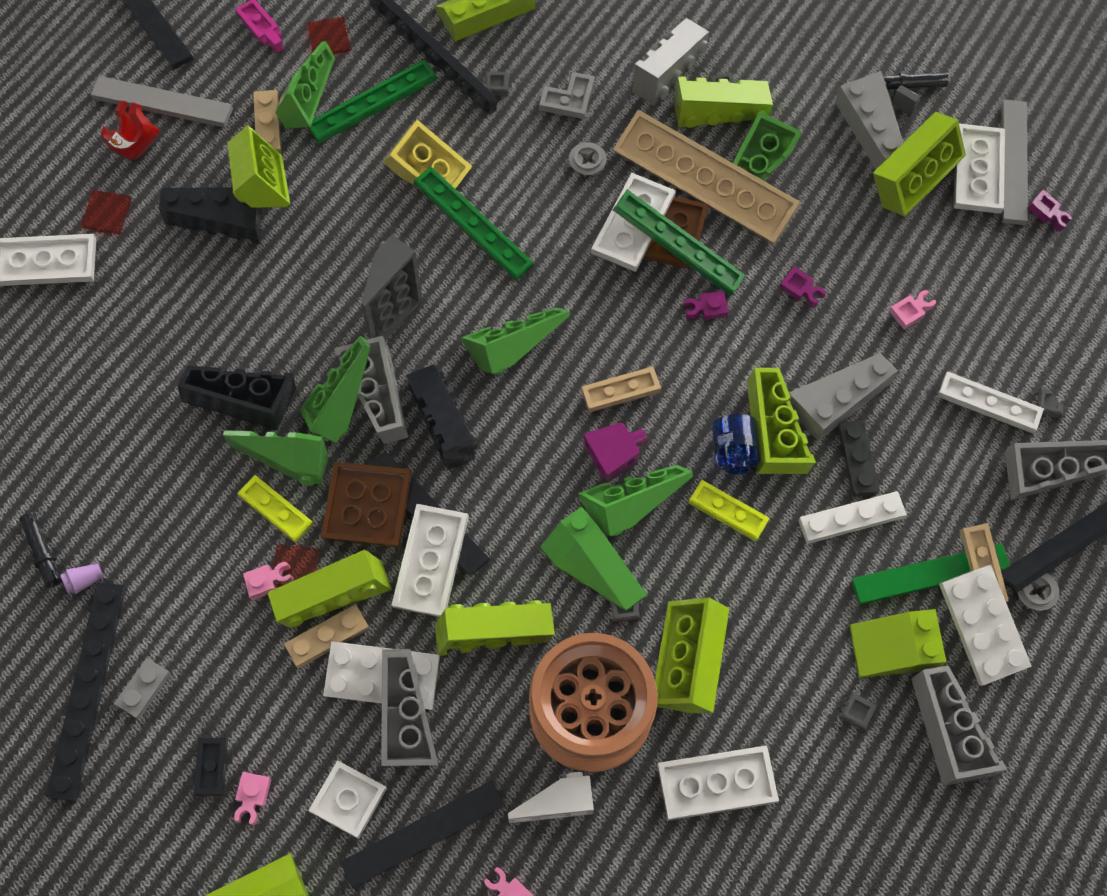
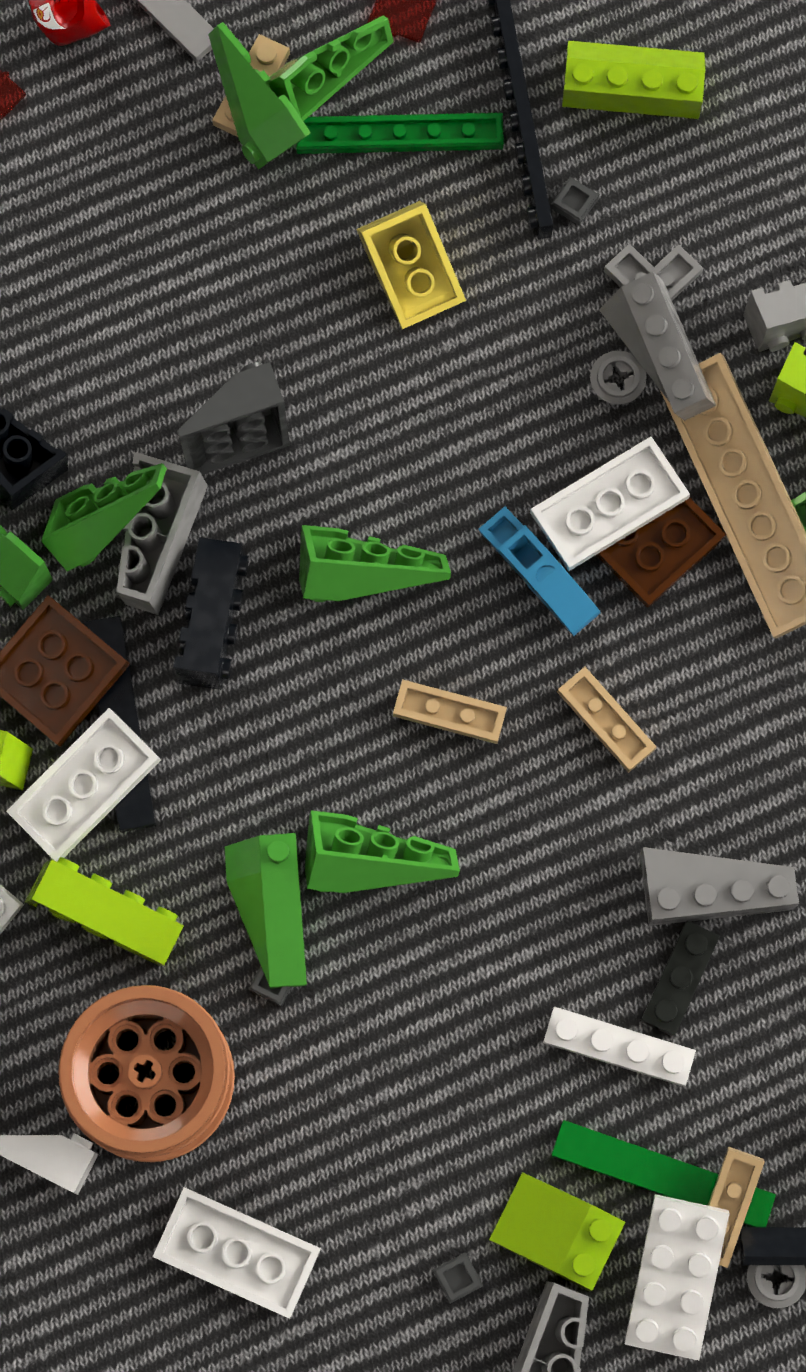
camera: 35 degrees right, 10 degrees up
(211, 210) = (114, 178): black wedge -> none
(257, 171) = (186, 159): lime slope -> none
(284, 126) = (261, 119): none -> bright green wedge
(473, 223) = (413, 382): green tile -> none
(596, 121) = (655, 336): none -> light grey wedge
(614, 449) = (389, 783): magenta torso -> none
(618, 279) = (540, 570): none -> dark azure slope
(679, 242) = (646, 566): green tile -> none
(691, 655) = (307, 1089): lime slope -> none
(710, 305) = (637, 671): magenta plate -> none
(713, 340) = (606, 719): none -> tan plate
(728, 510) = (476, 943): neon yellow tile -> none
(735, 443) = (535, 870): clear blue gear -> none
(780, 438) = (598, 884): lime wedge -> none
(800, 285) = (766, 712): magenta plate -> none

